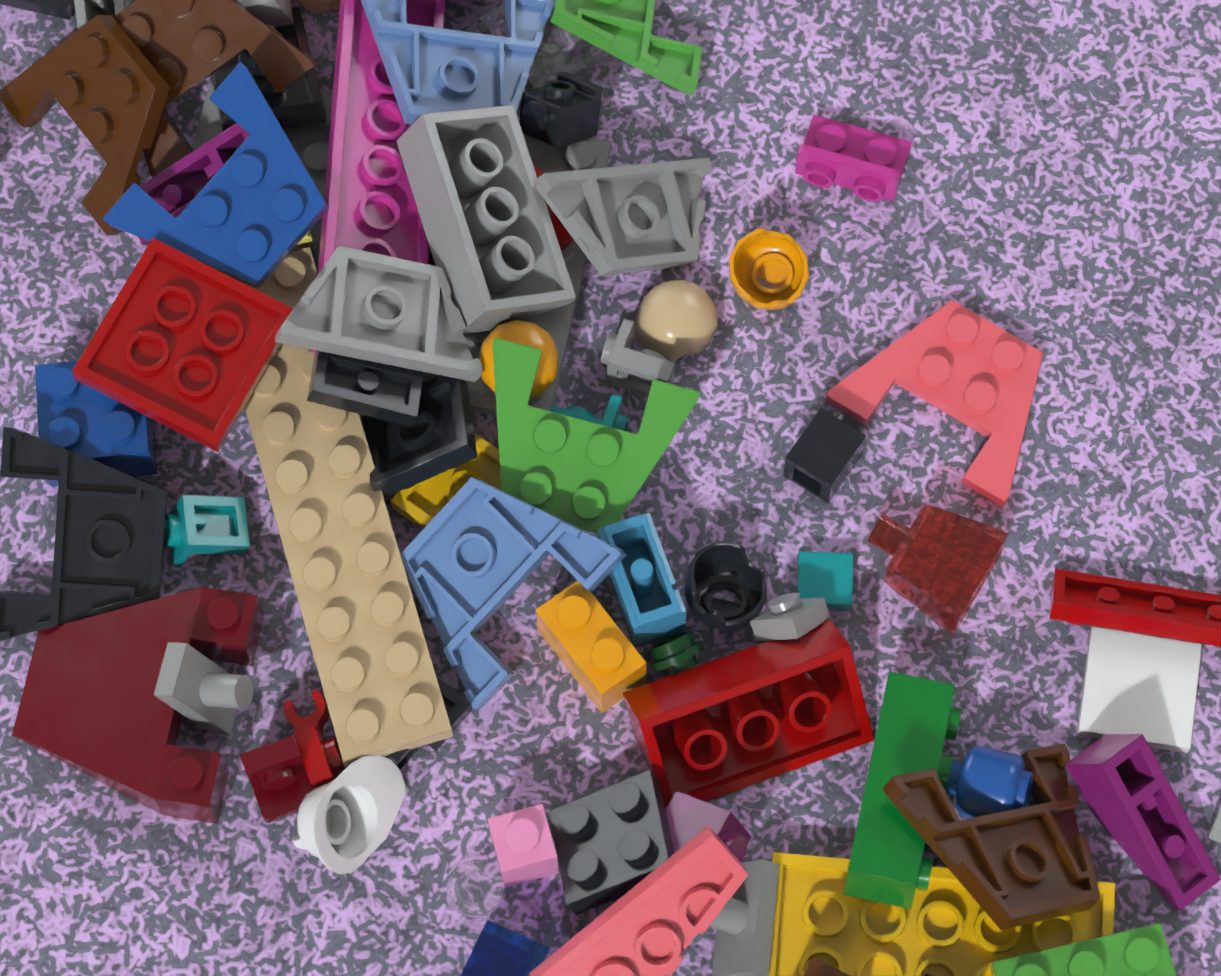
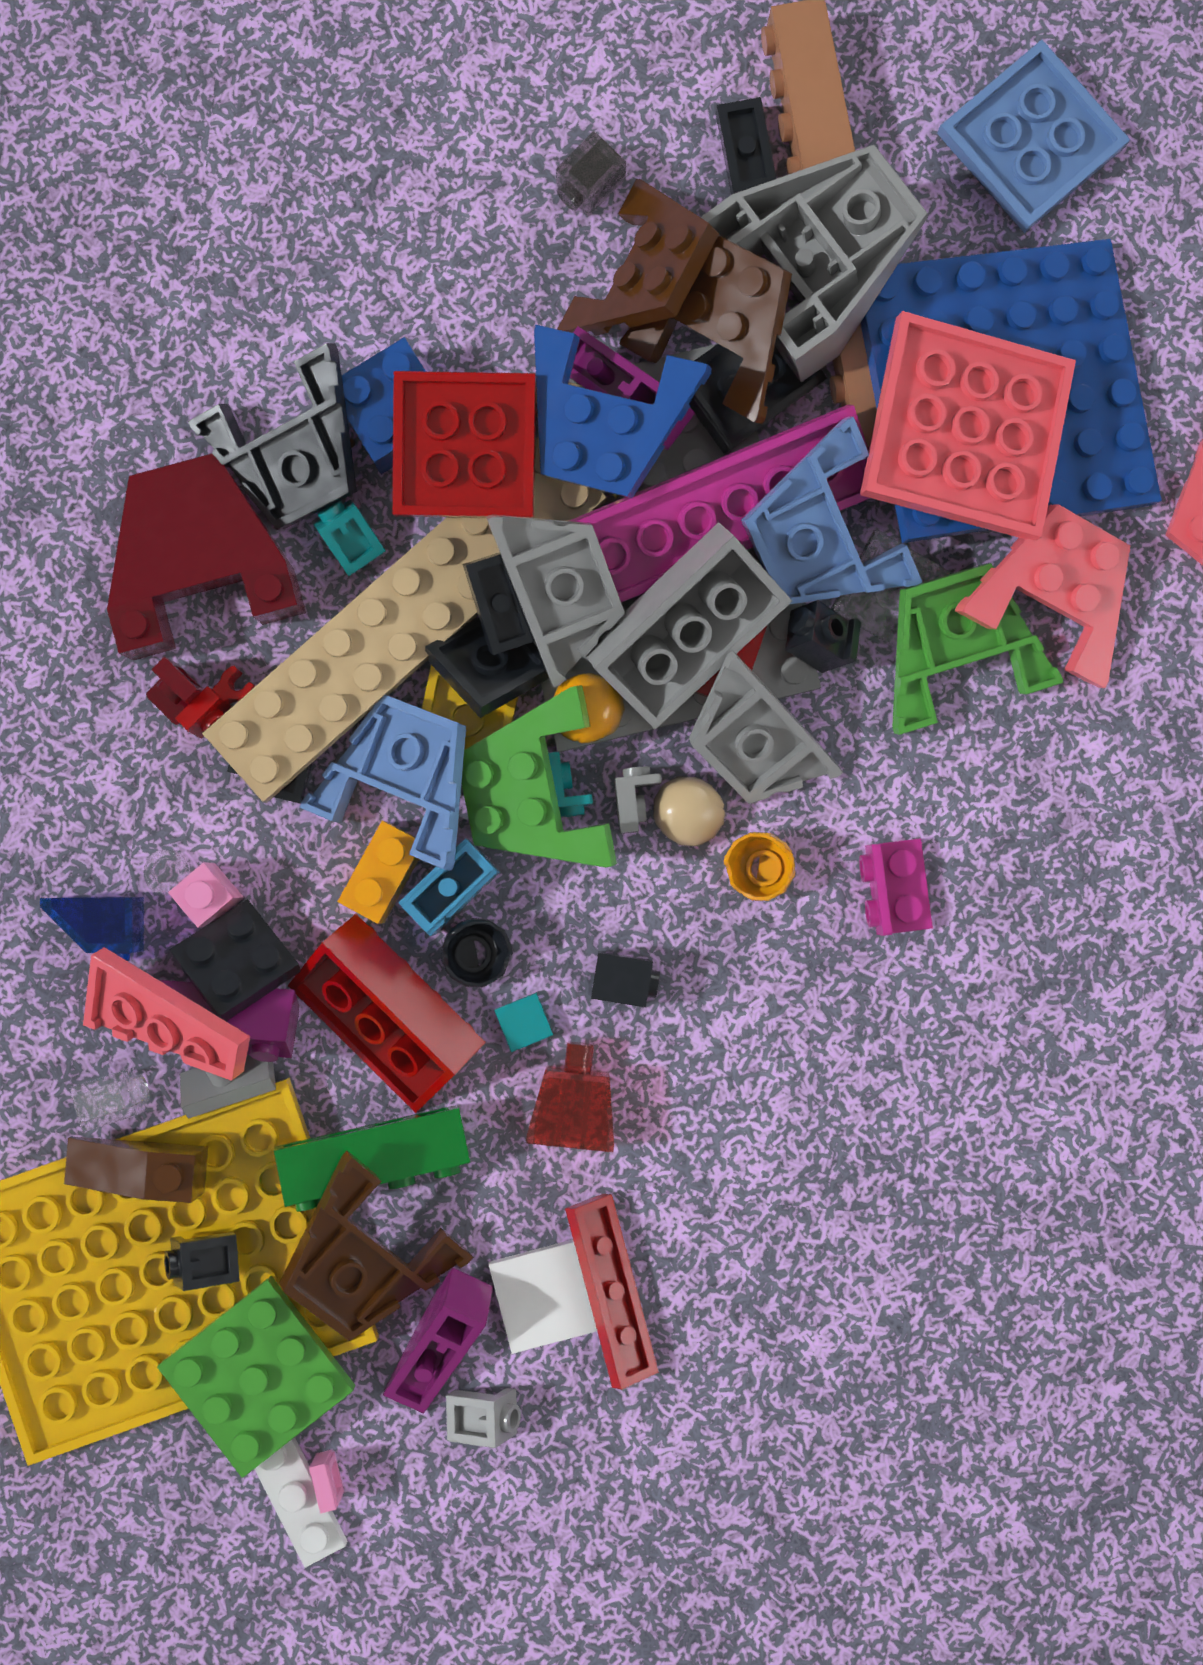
camera: 60 degrees right, 20 degrees up
(202, 688) = (208, 600): light grey tile -> none
(351, 814) = (169, 756): white piece -> none
(676, 653) = (408, 938): dark green plate -> none
(789, 617) = (472, 1013): light grey plate -> none
(965, 371) = (749, 1060): coral wing -> none
(989, 782) = (407, 1220): blue head -> none

